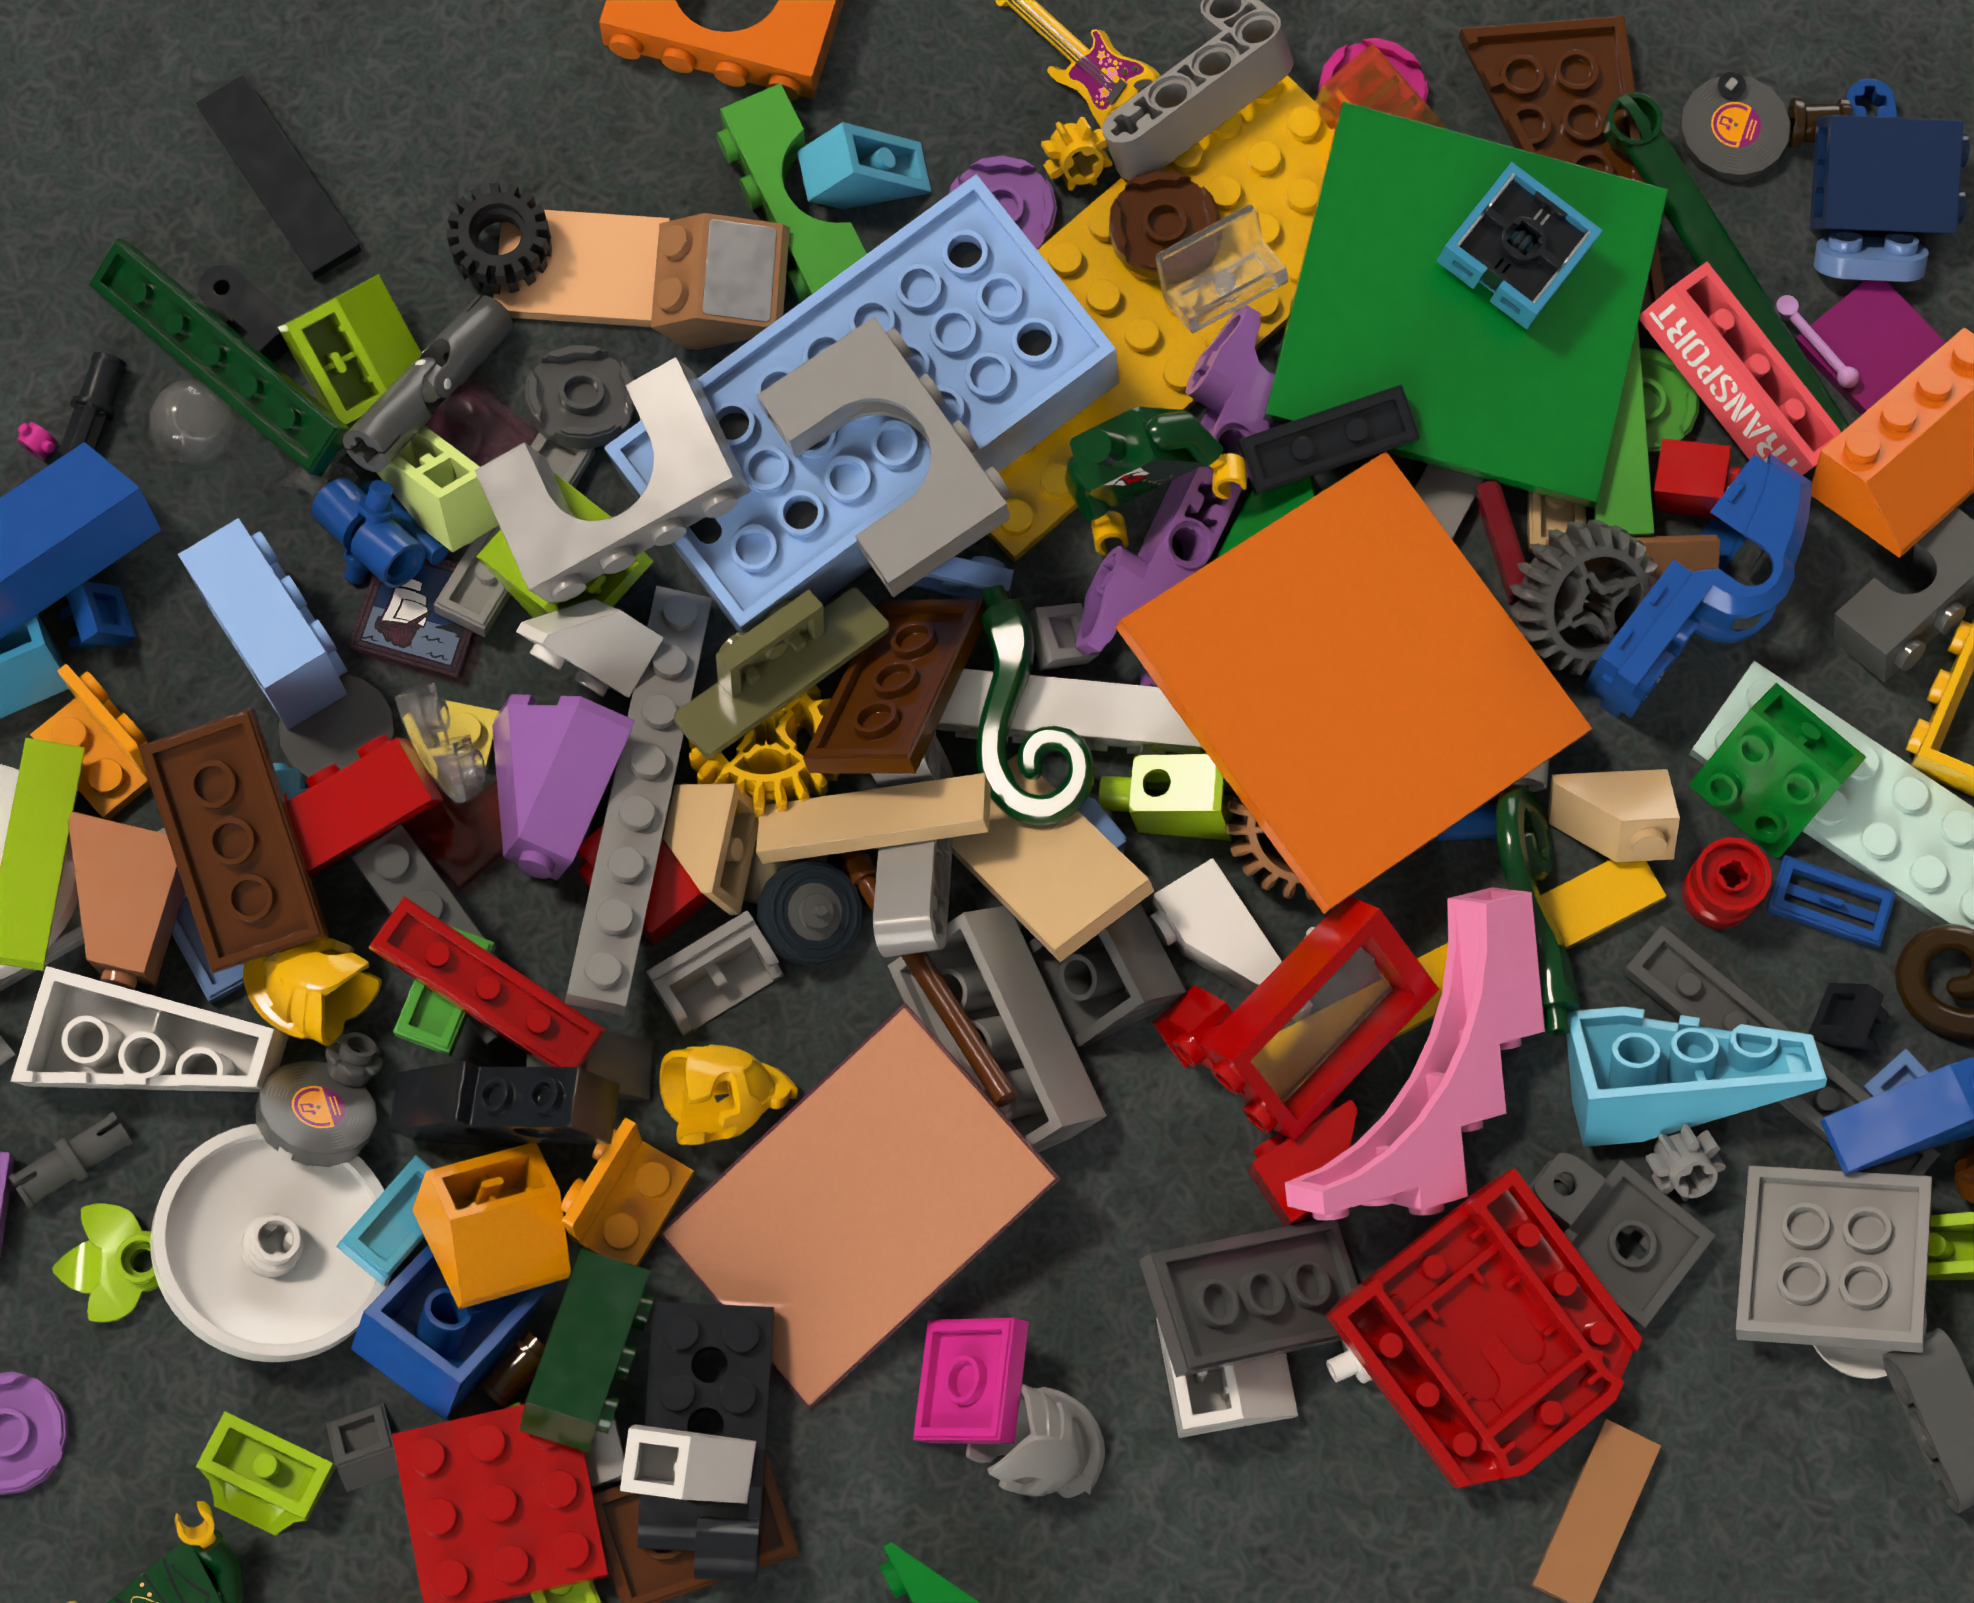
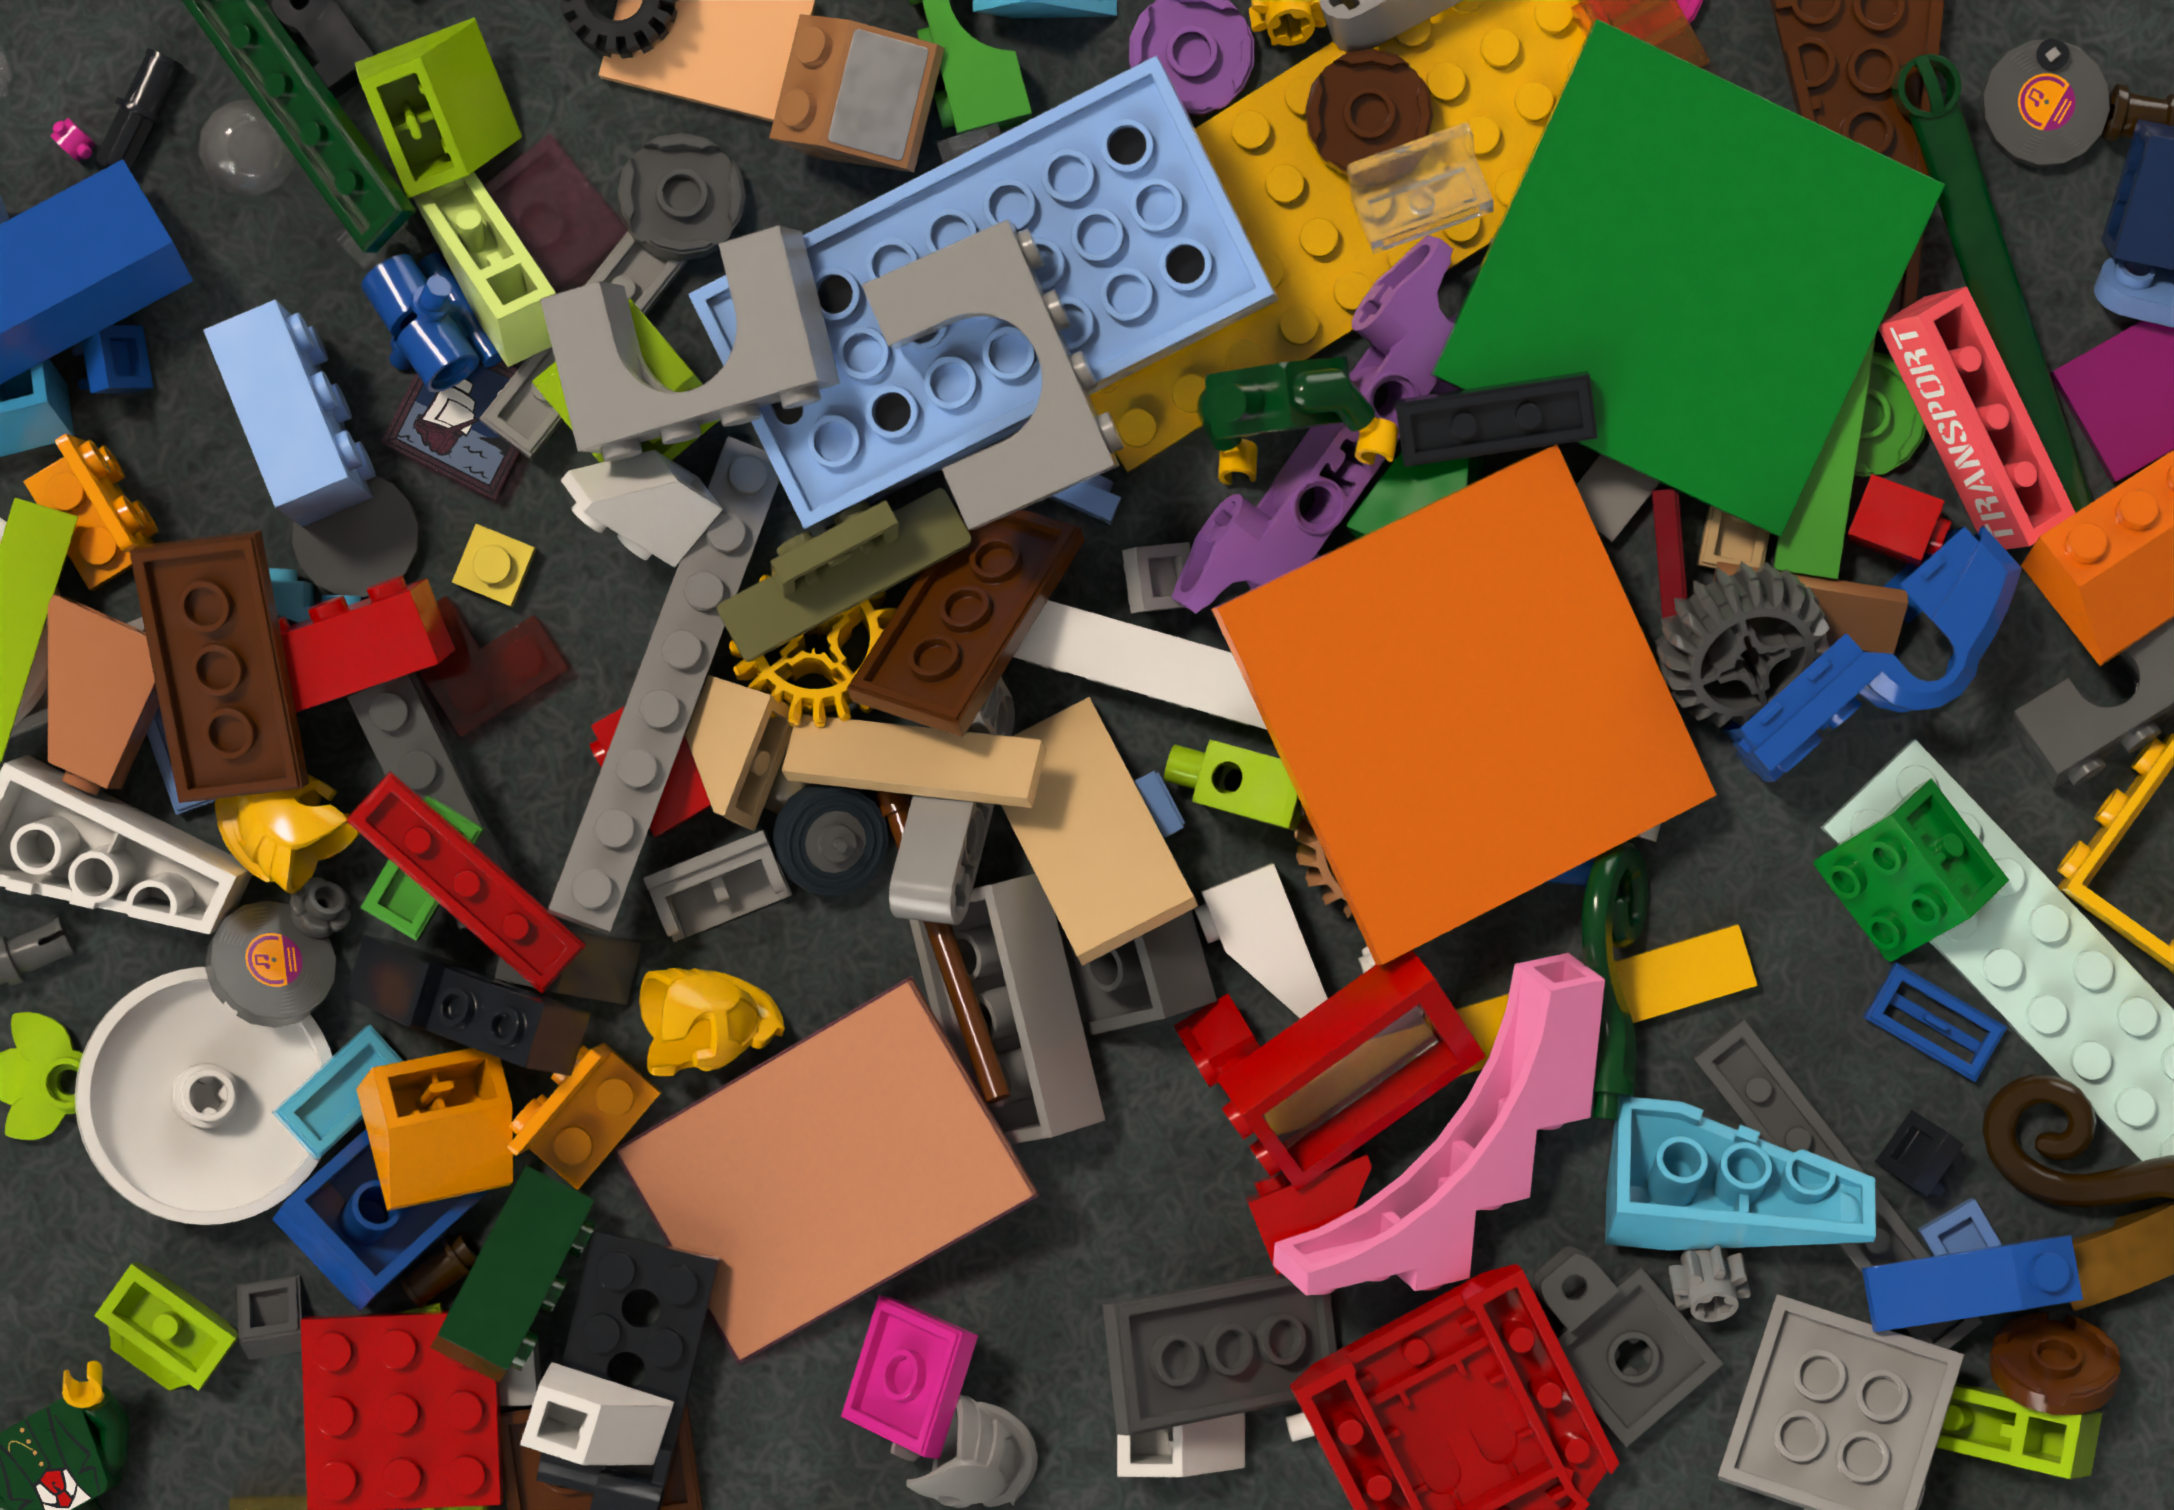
camera: 15 degrees right, 15 degrees up
(427, 383) = (511, 163): dark grey piece -> none
(449, 761) = (465, 598): clear slope -> none
(552, 776) = (576, 648): medium lavender slope -> none
(1013, 651) = (1102, 592): dark green plant -> none
(1517, 221) = (1762, 207): piece -> none
(1617, 812) = (1726, 889): tan slope -> none
(1726, 883) = (1824, 989): red wheel -> none
(1787, 308) = (2051, 337): lavender hinge -> none

